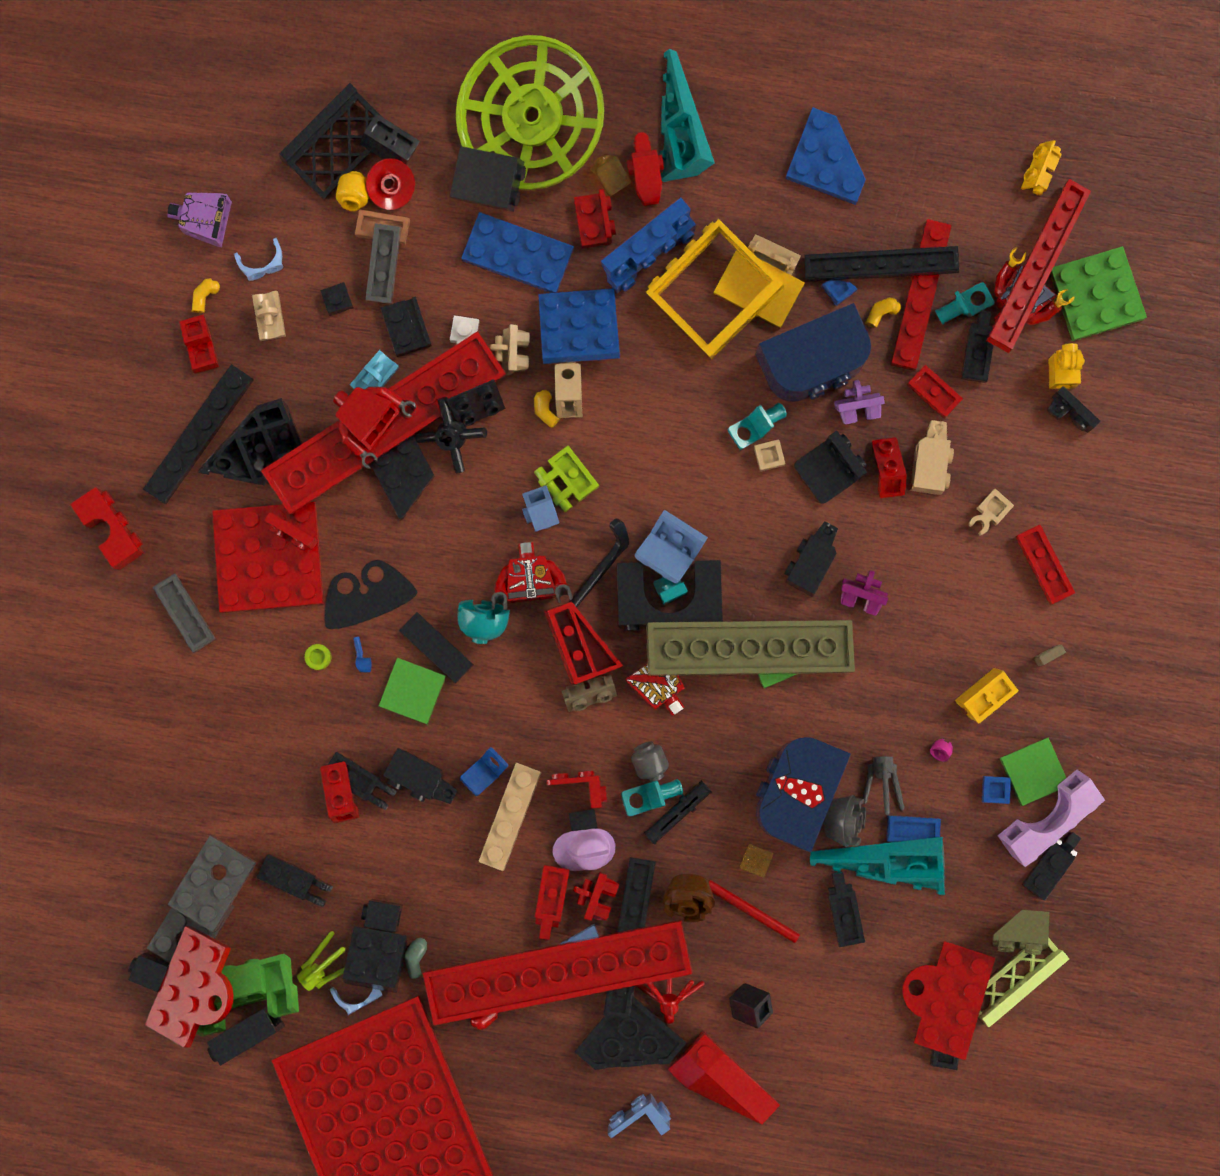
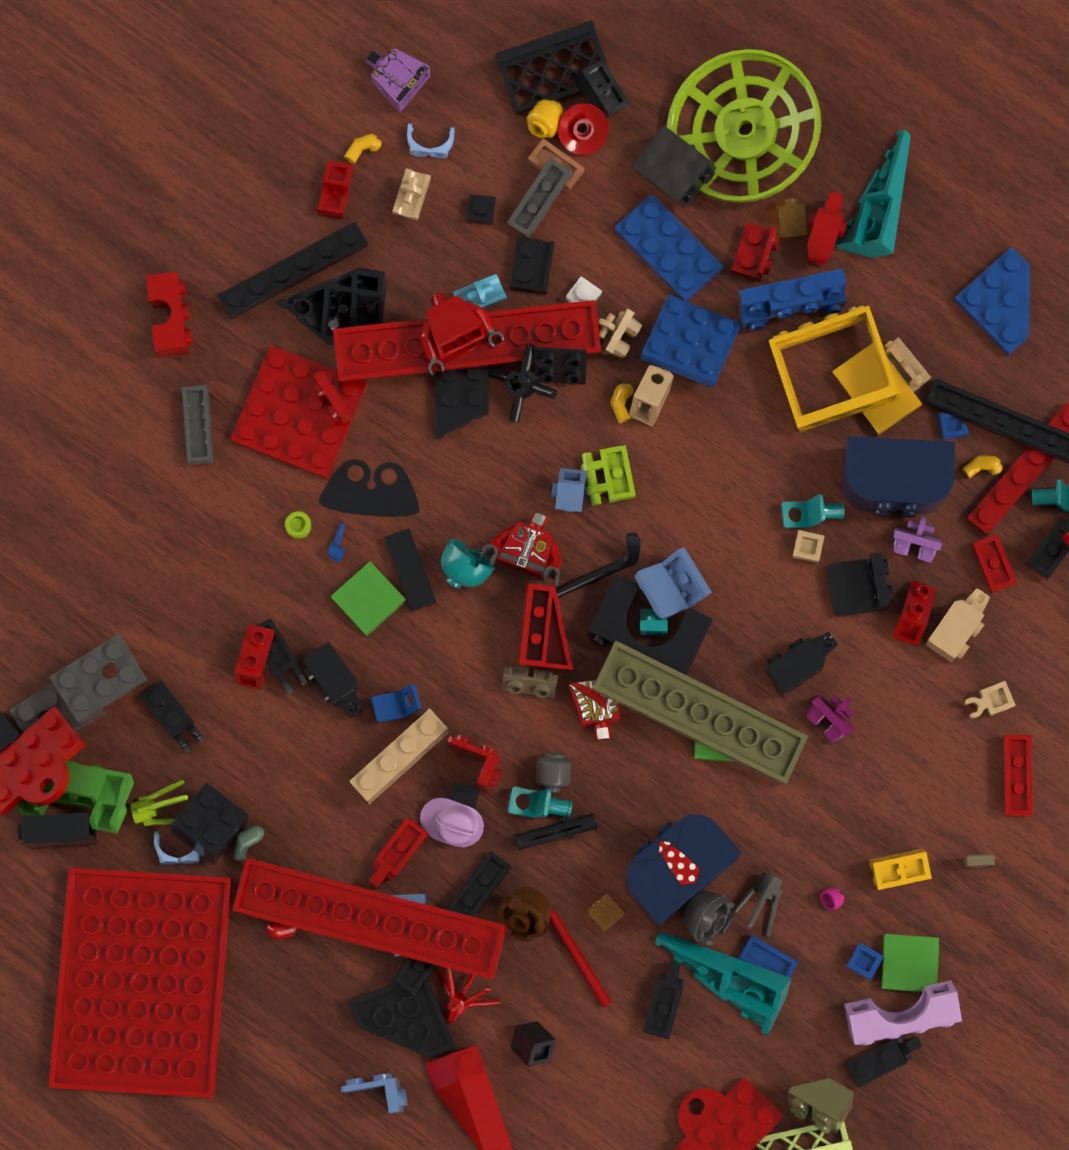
camera: 30 degrees right, 5 degrees down
(382, 915) = (236, 787): black brick -> none
(595, 909) = (433, 880): red hips -> none

